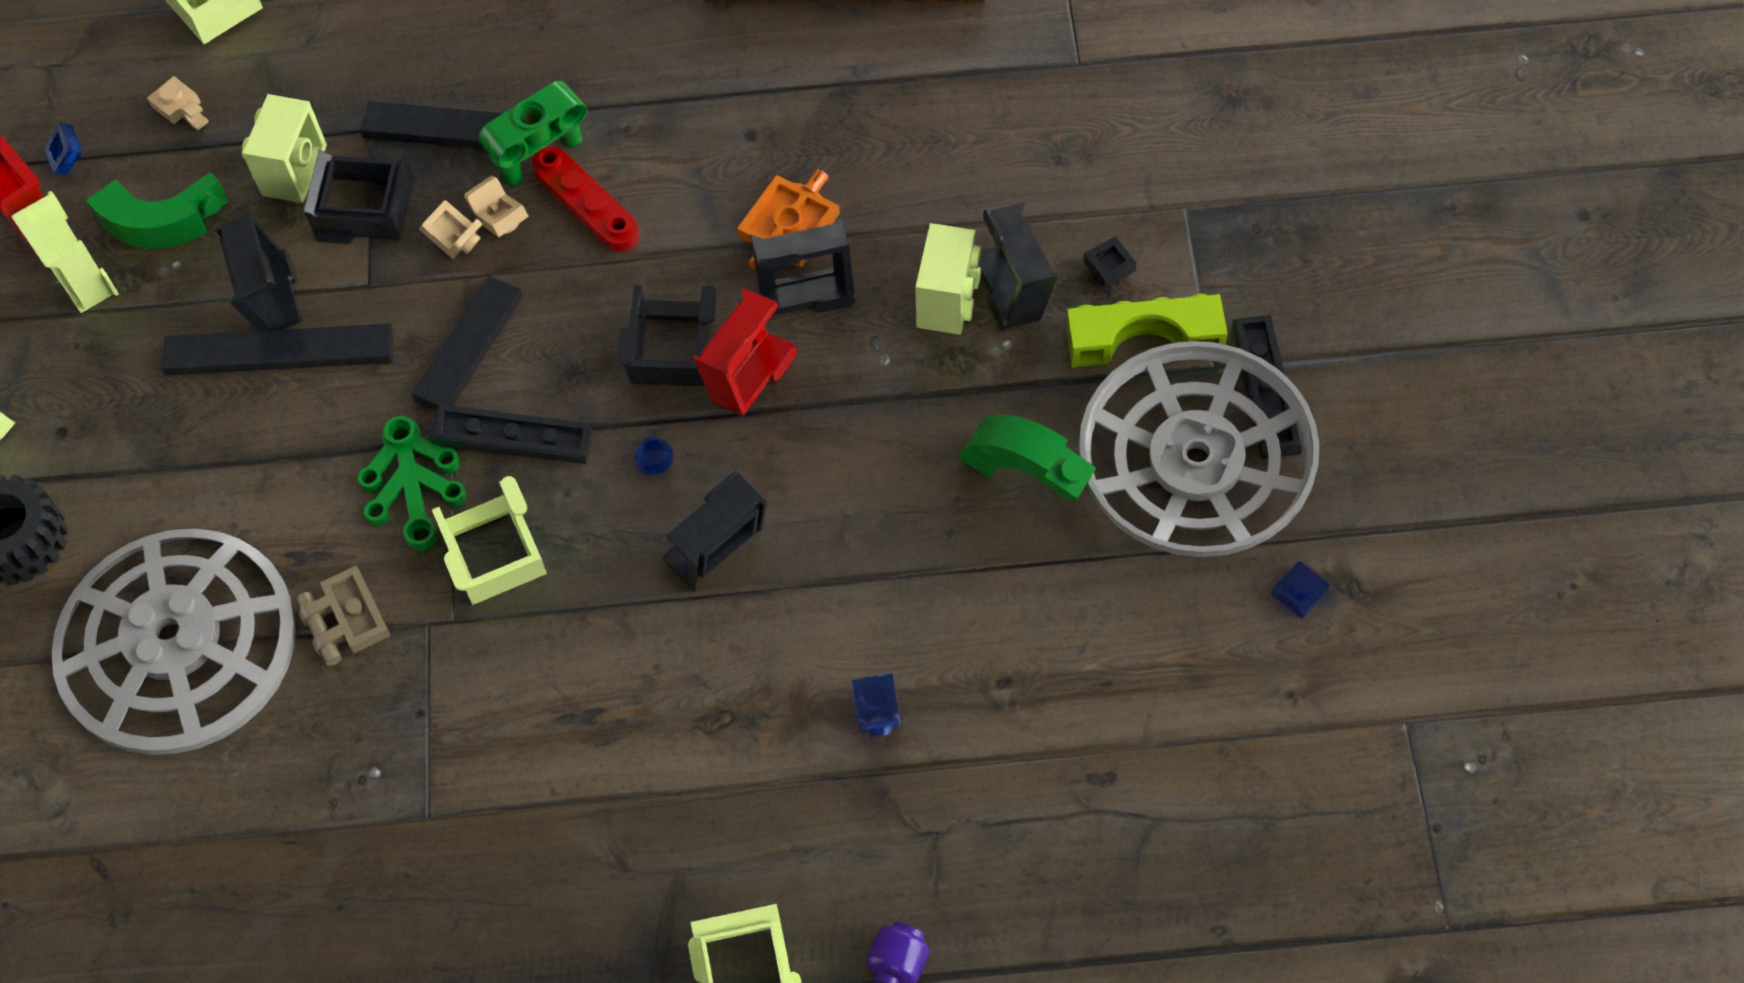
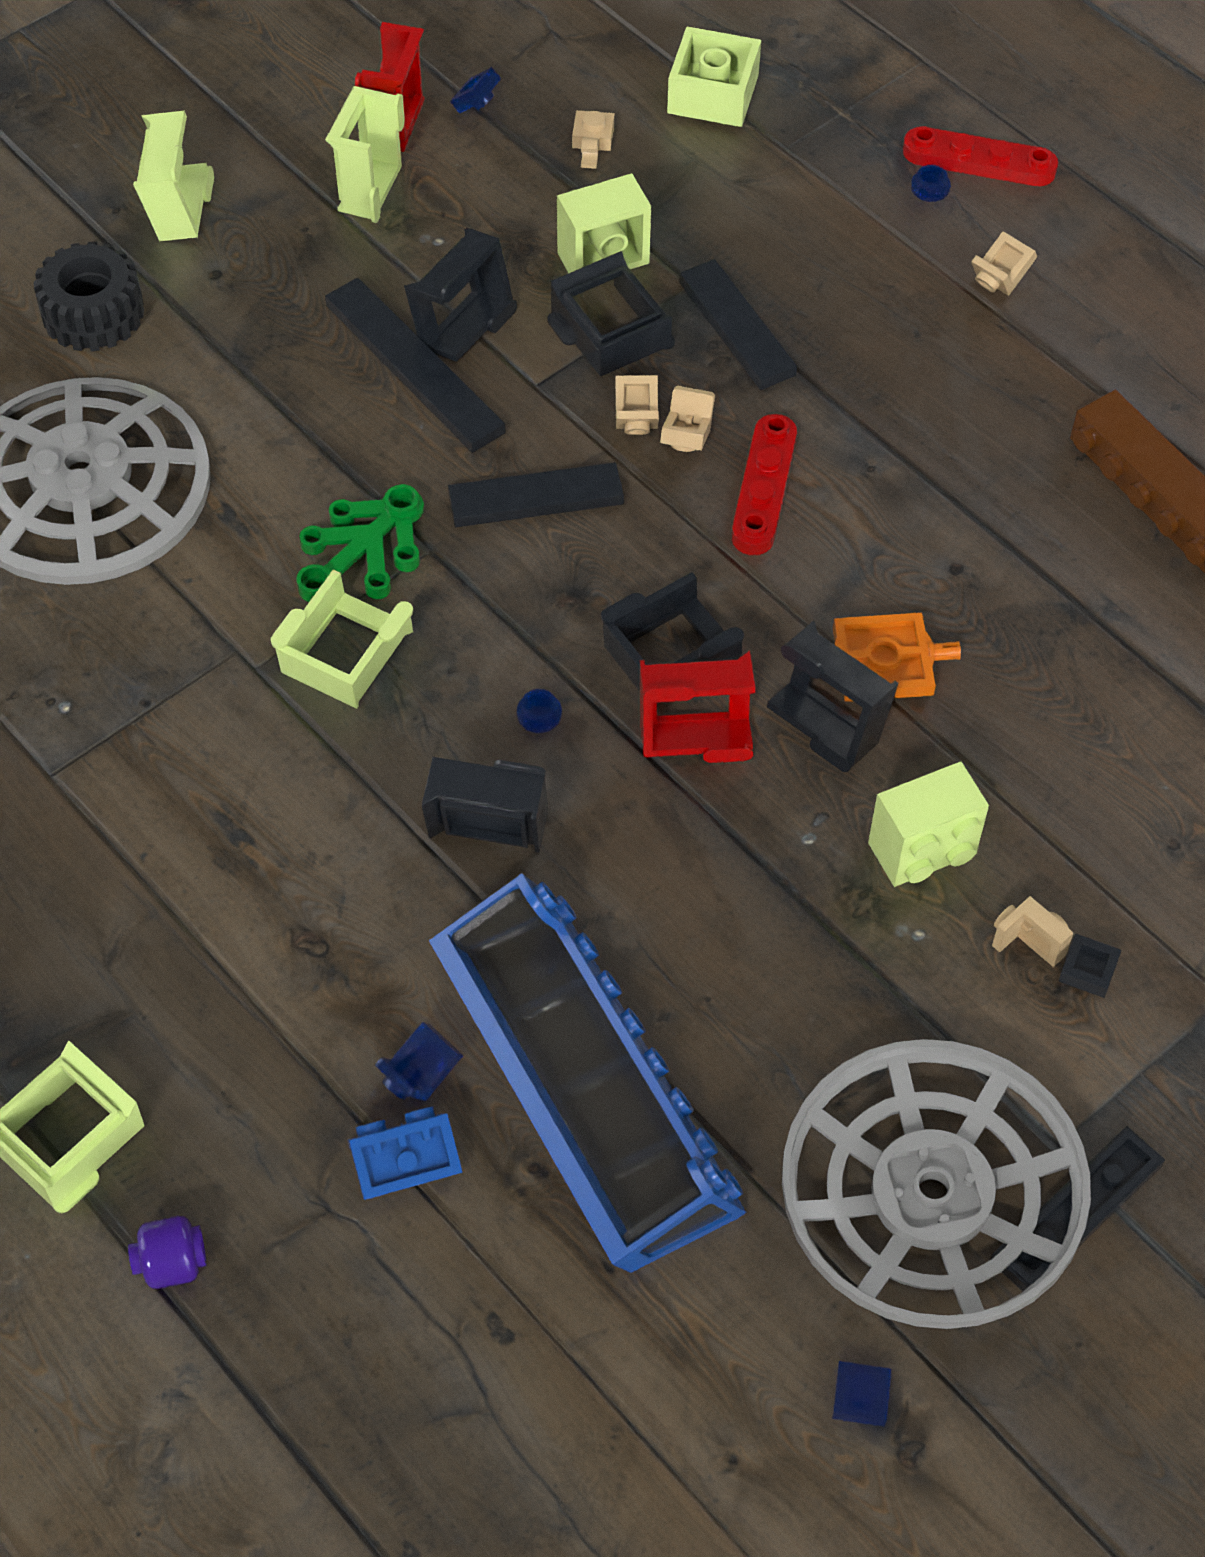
camera: 50 degrees right, 5 degrees down
(161, 222) = (466, 202): green arch -> none
(354, 609) = (200, 587): dark tan plate -> none
(512, 433) = (471, 587): black tile -> none
(531, 127) = (785, 385): green piece -> none
(935, 755) = (404, 1153): none -> blue bracket
(961, 603) = (587, 1075): none -> window
(1015, 270) = (996, 873): black piece -> none
(1029, 448) = (790, 1026): green arch -> none
(1072, 271) = (1036, 927): none -> tan bracket
(1099, 330) = (995, 1005): lime arch -> none

